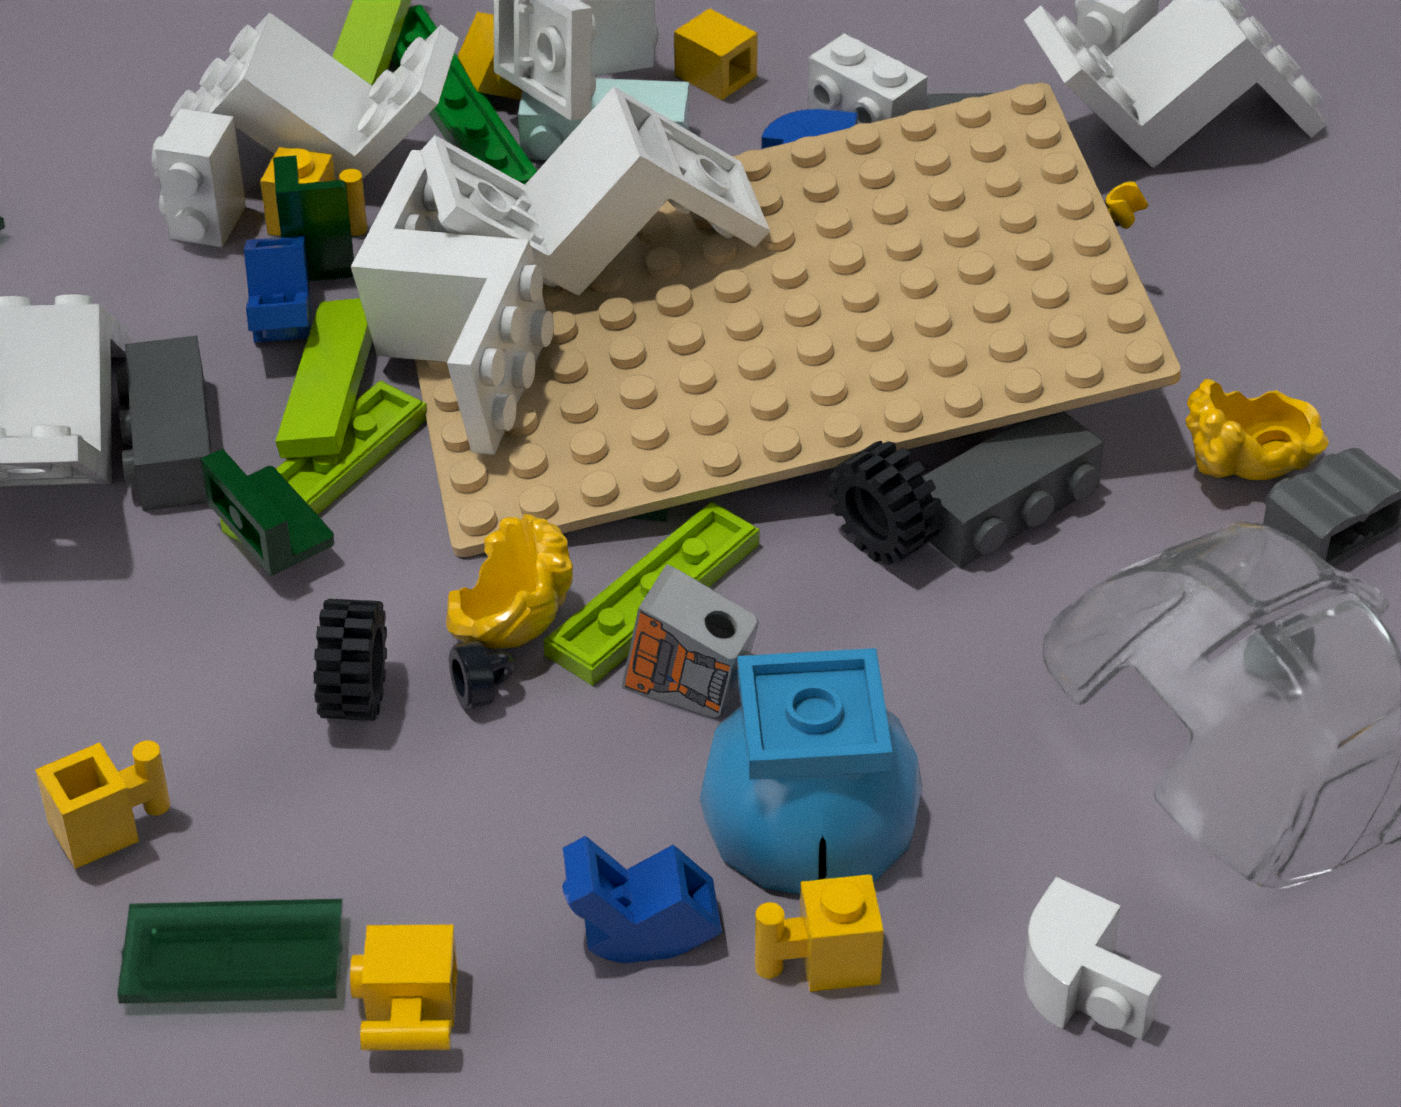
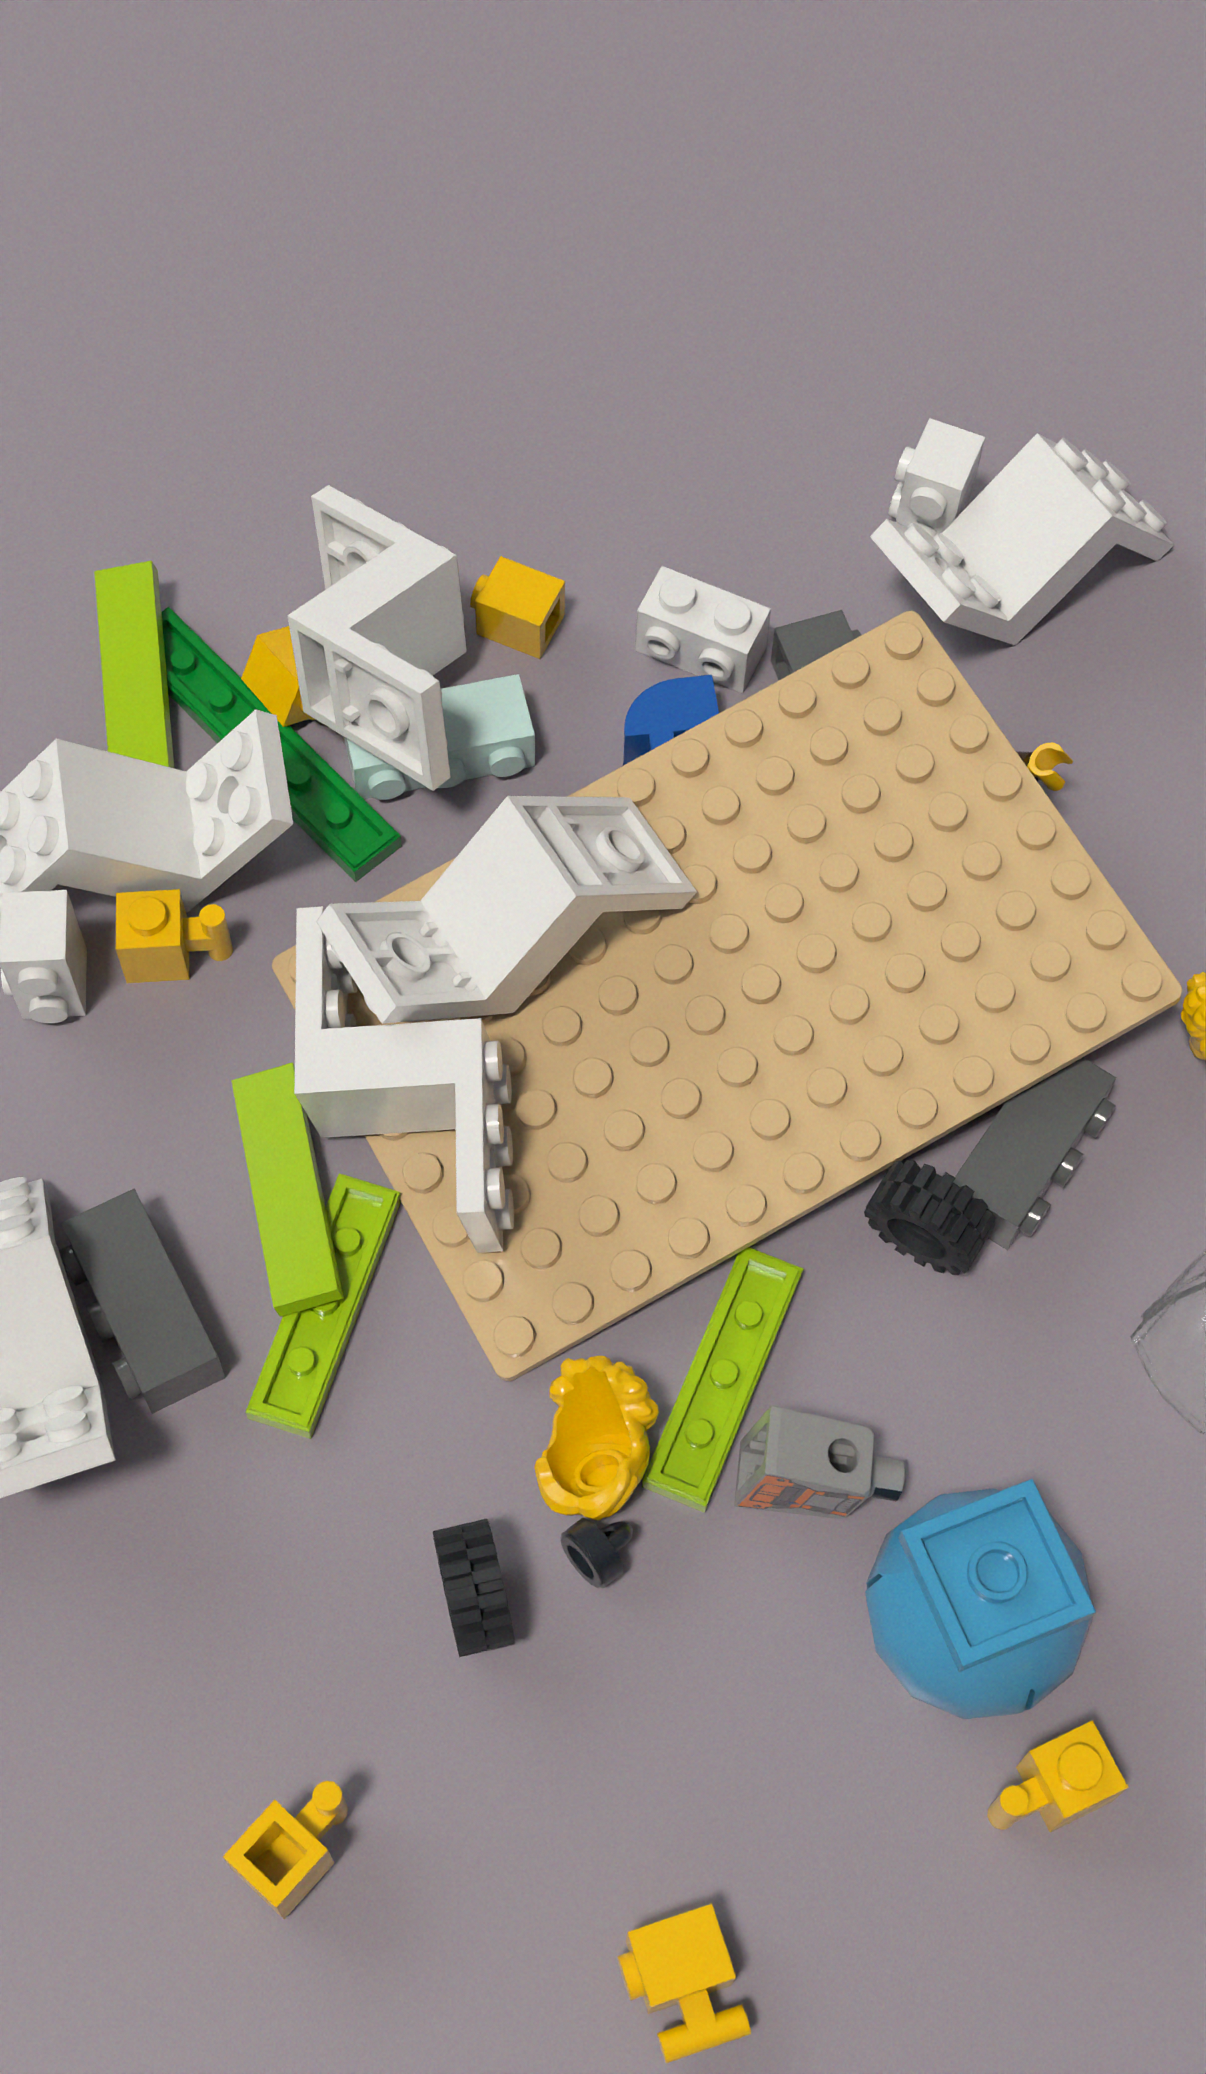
camera: 20 degrees left, 20 degrees up
(231, 951) = (486, 1976): clear green piece -> none
(264, 513) = (302, 1405): dark green panel -> none
(278, 289) = (189, 1088): blue brick -> none
(320, 214) = (192, 1001): dark green panel -> none
(642, 910) = (873, 1802): blue brick -> none

